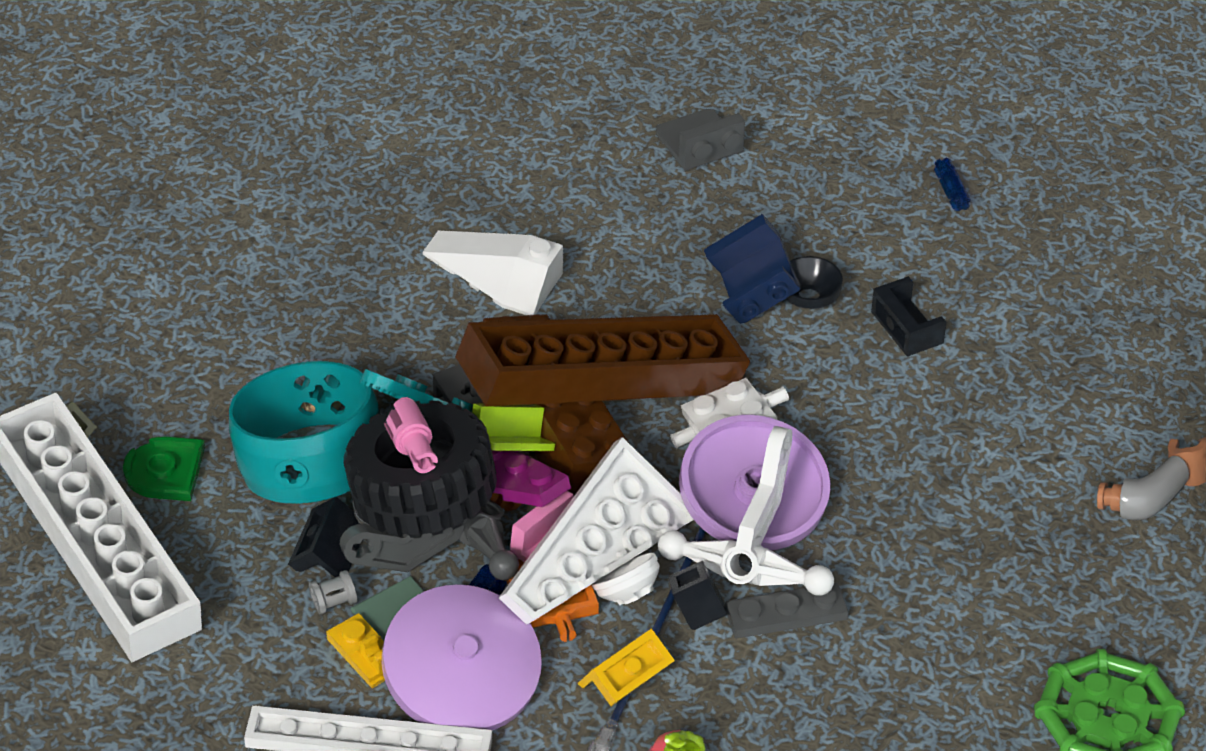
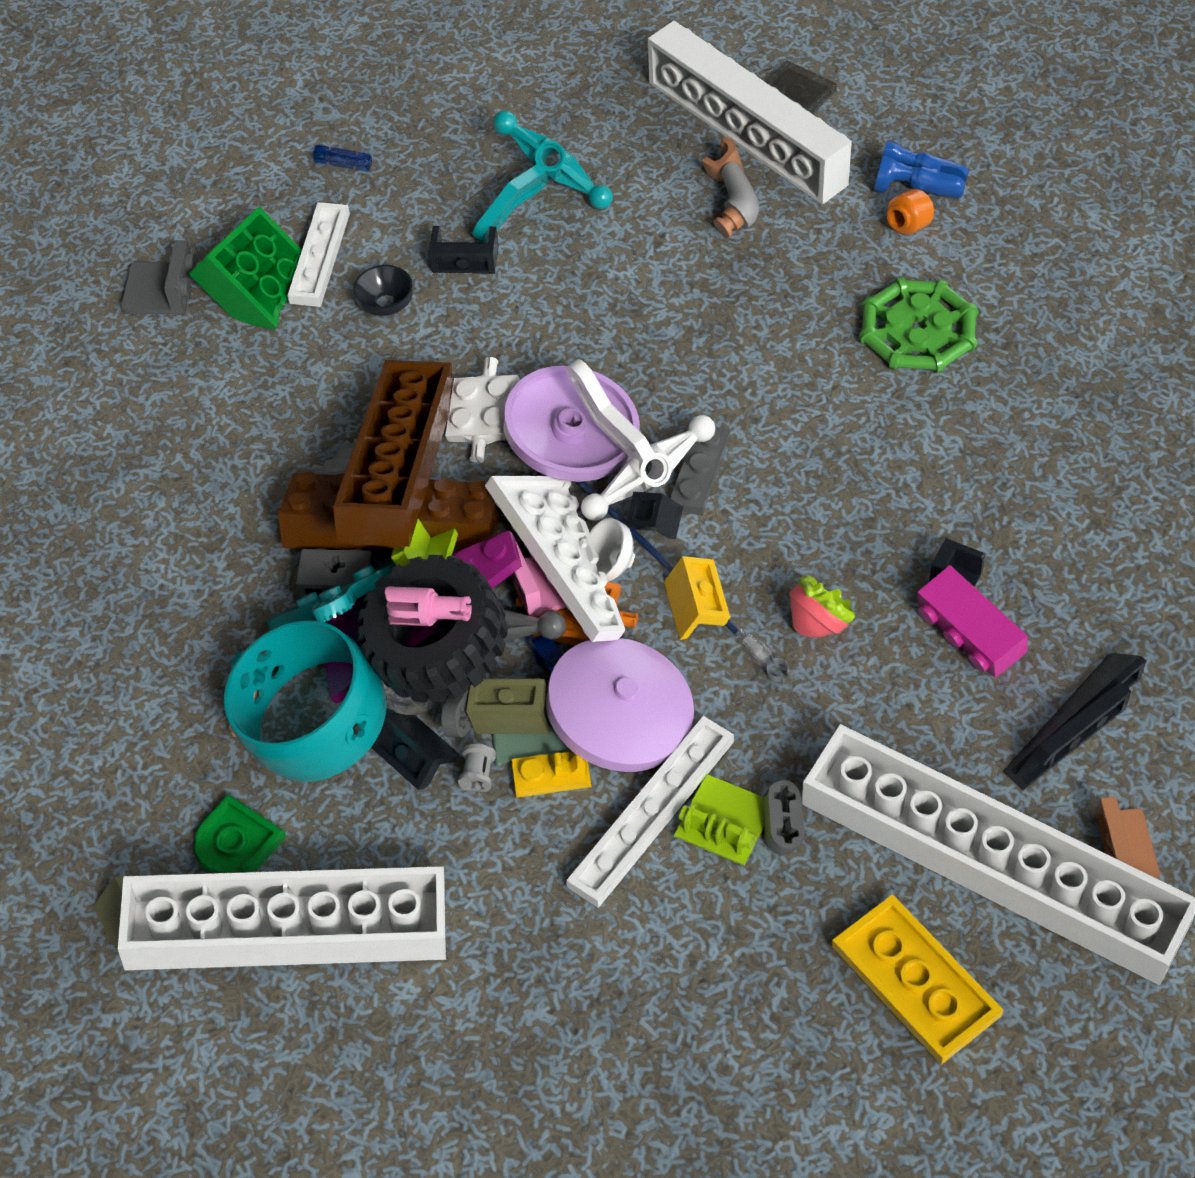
camera: 55 degrees left, 10 degrees up
(399, 571) = (508, 706): none -> olive panel
(507, 267) = (200, 481): white wedge -> none
(753, 269) = (347, 318): dark blue panel -> none
(761, 178) = (251, 271): none -> green wedge
(832, 219) = (318, 254): none -> white plate
(1060, 324) = (531, 182): none -> teal piece

